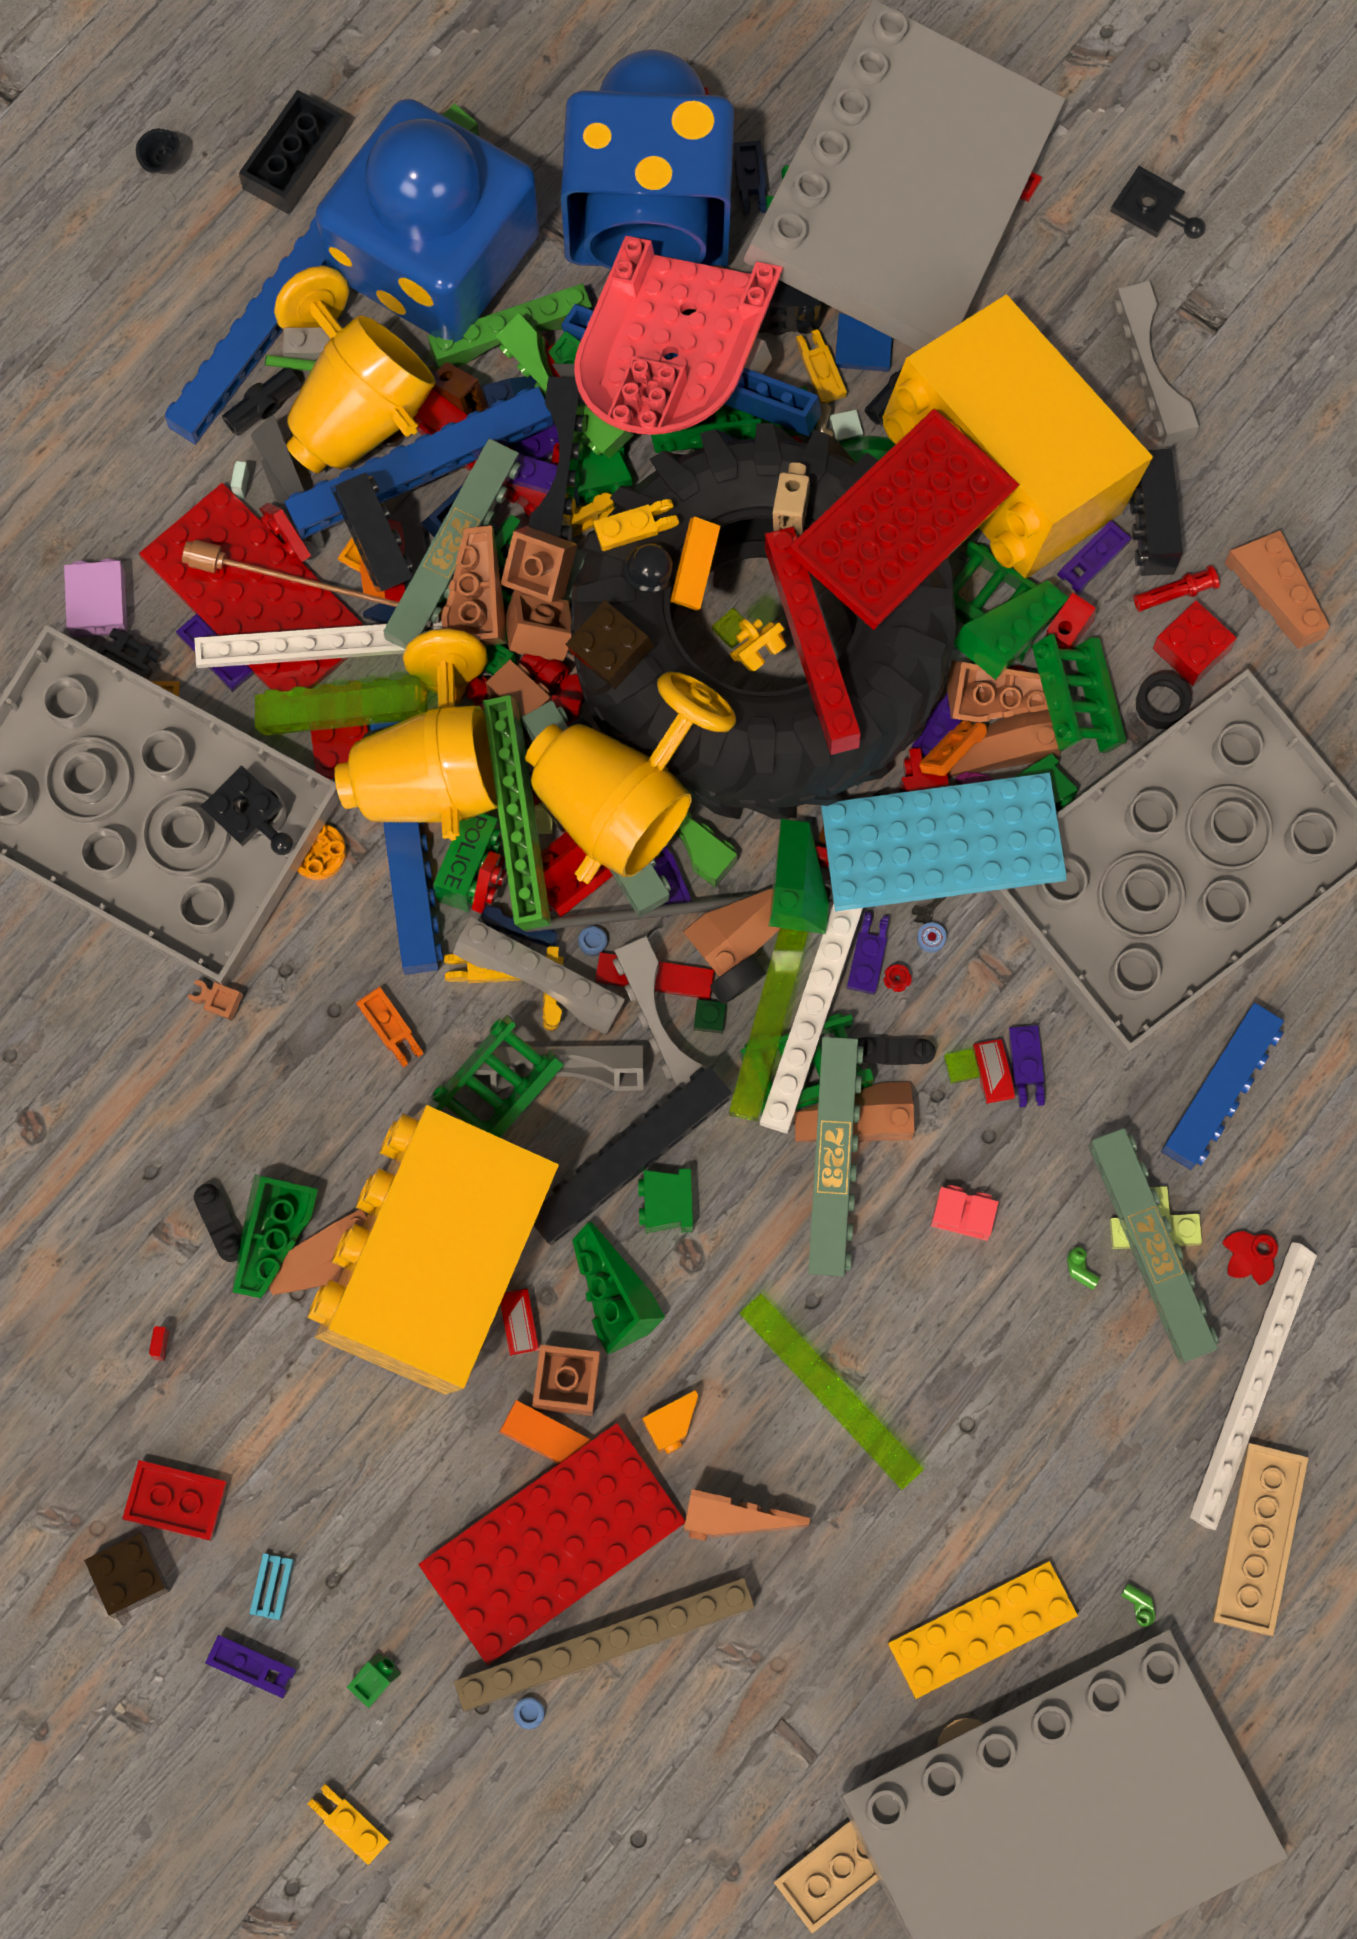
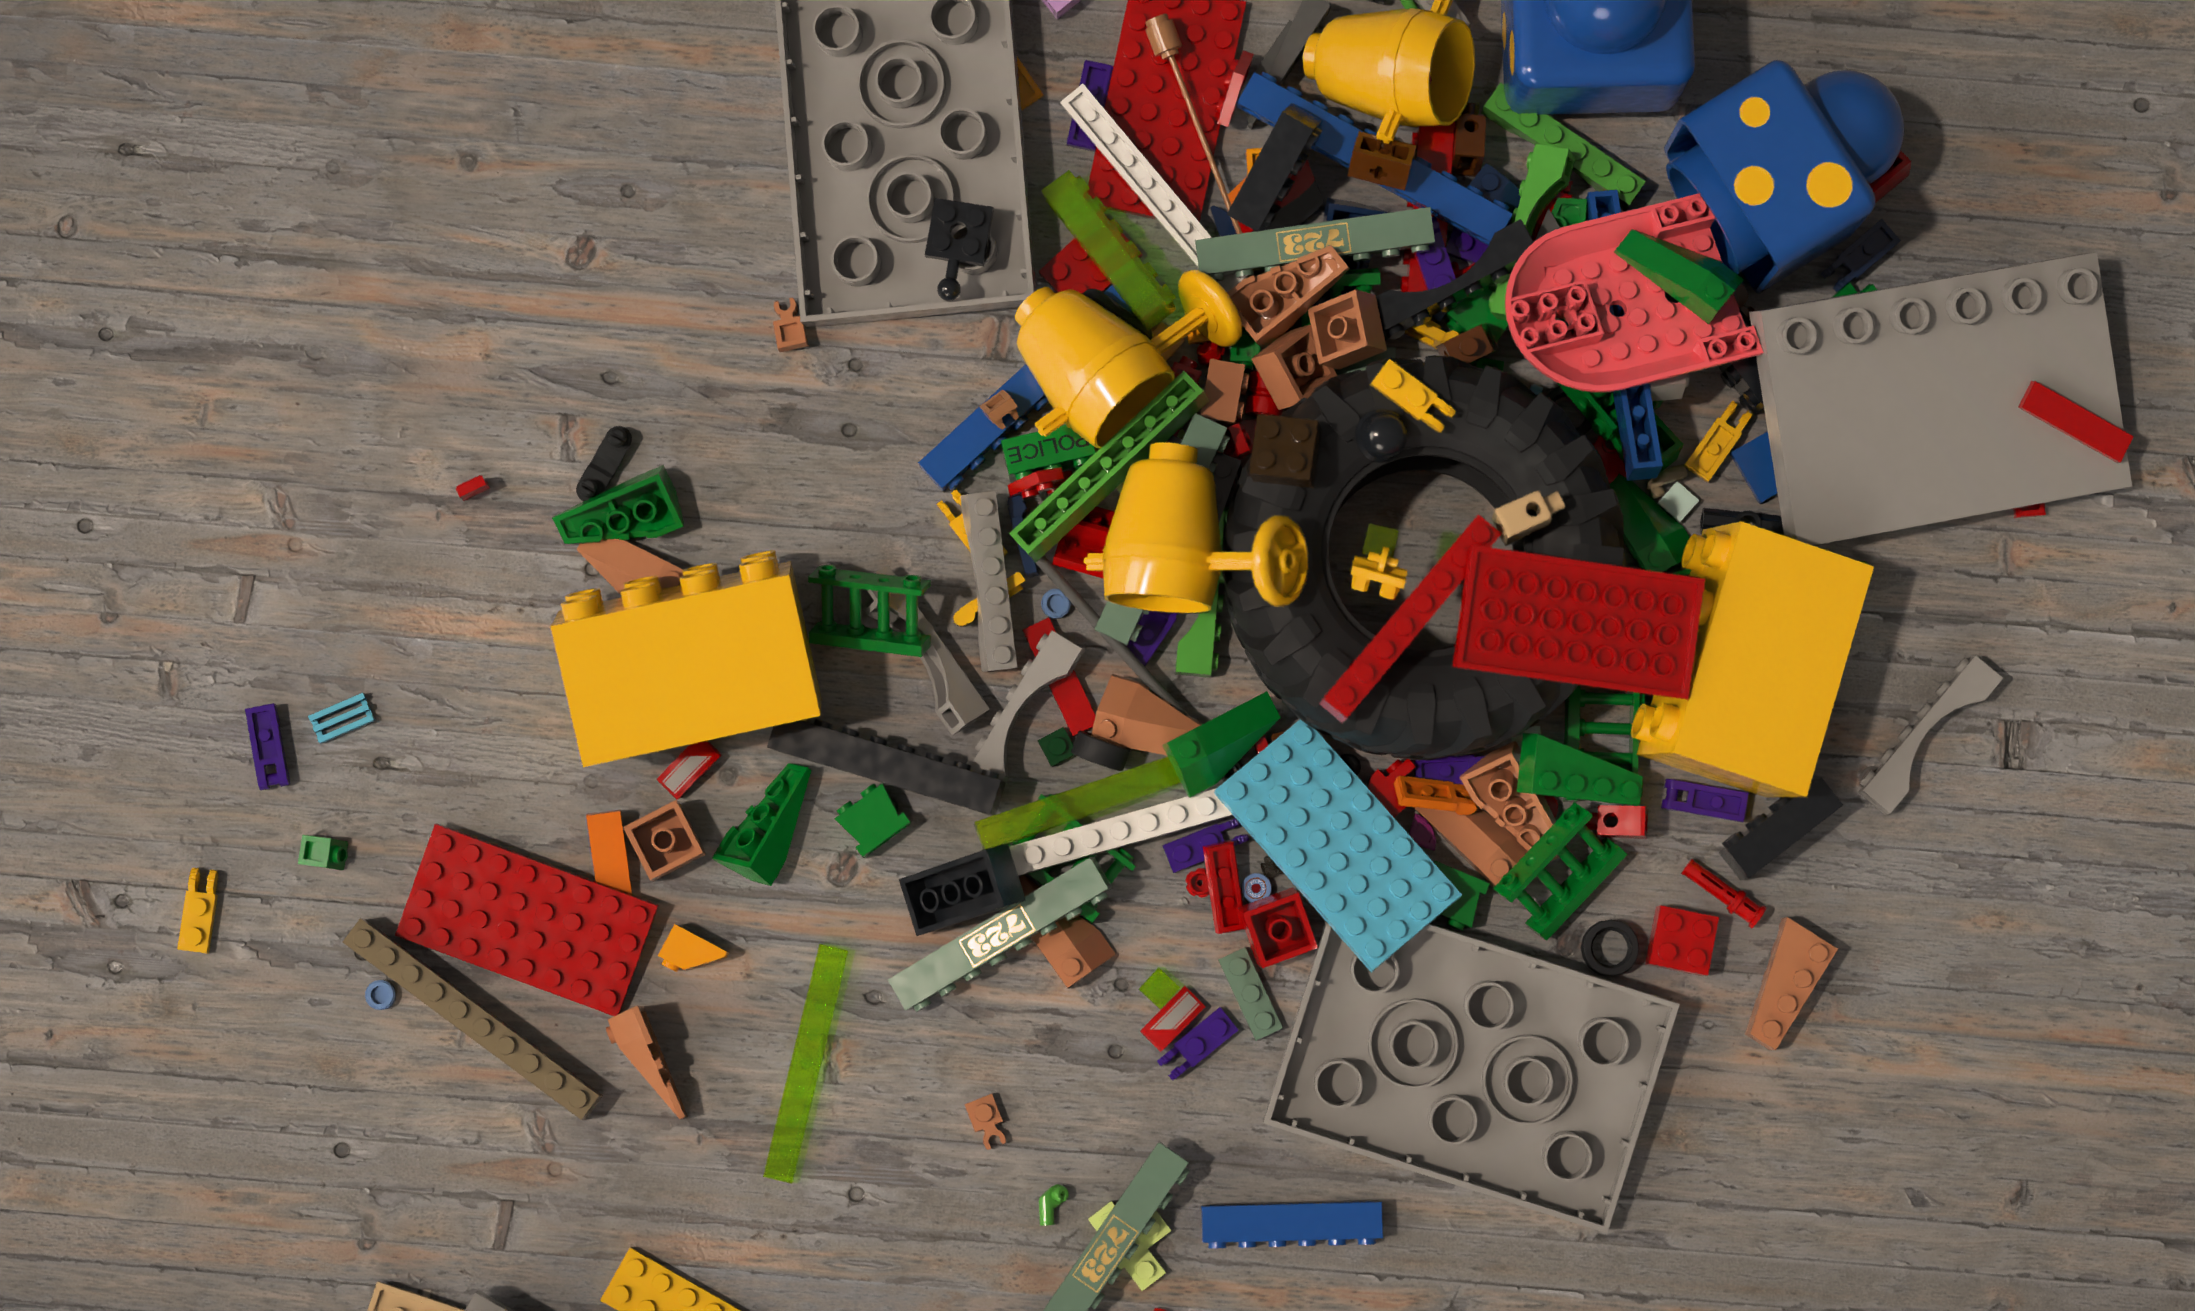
camera: 55 degrees right, 10 degrees up
(126, 640) = (1025, 47): black plate -> none
(126, 1575) = (270, 597): dark brown brick -> none
(174, 1500) = (356, 591): red plate -> none
(240, 479) = (1258, 15): light aqua tile -> none
(325, 855) = (976, 327): light orange tile -> none
(388, 1024) = (865, 484): orange hinge -> none
(404, 872) = (999, 406): none -> medium nougat tile
(426, 449) = (1381, 162): none -> reddish brown brick
(616, 475) = (1470, 344): none -> reddish brown torso
(682, 287) = (1687, 276): none -> green wedge
(695, 563) = (1414, 471): light orange tile -> none
(777, 1159) = (962, 889): none -> black brick
(896, 1051) = (1133, 923): black piece -> none
(914, 958) = (1223, 886): none -> red tile
(964, 1213) = (1031, 1075): coral piece -> none
(972, 1275) = (984, 1116): none -> nougat plate
(976, 937) = (1277, 927): none -> red brick
(990, 98) = (2075, 421): none -> red tile
(1014, 998) = (1250, 994): none -> sand green plate
(1154, 217) = (2075, 641): black plate -> none

